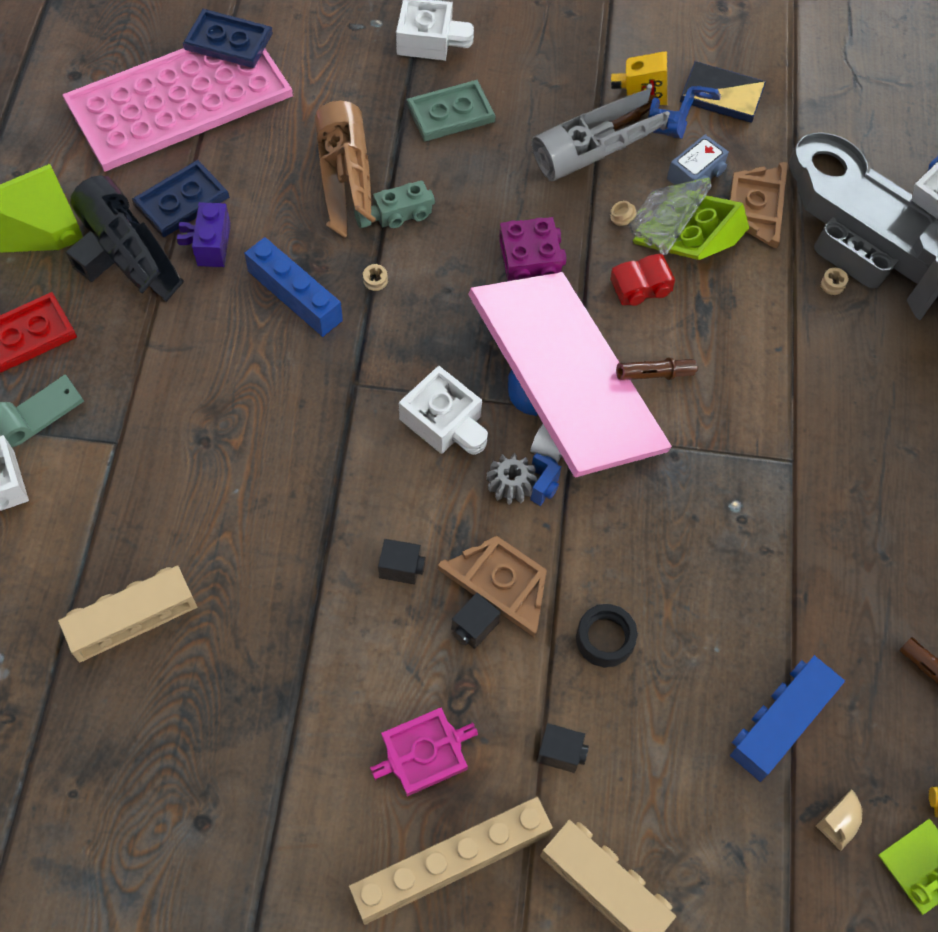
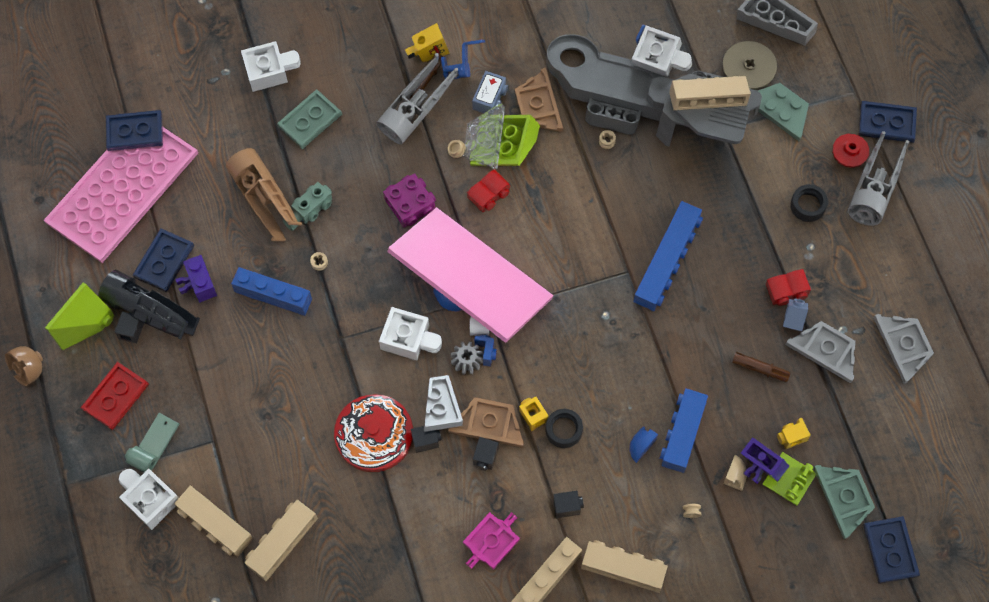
camera: 20 degrees left, 5 degrees up
(52, 546) = (213, 521): none -> tan brick
(333, 525) = (373, 433): none -> dish
(444, 526) = (442, 406): none -> wing
(575, 582) = (529, 405): none -> yellow brick
(656, 369) = (517, 252): reddish brown axle -> none
(714, 708) = (641, 443): none -> blue brick
(738, 92) = (487, 26): tile -> none
(750, 846) = (692, 510): none -> tan bush
(860, 462) = (667, 256): none -> blue brick
(897, 819) = (763, 461): none -> dark purple brick

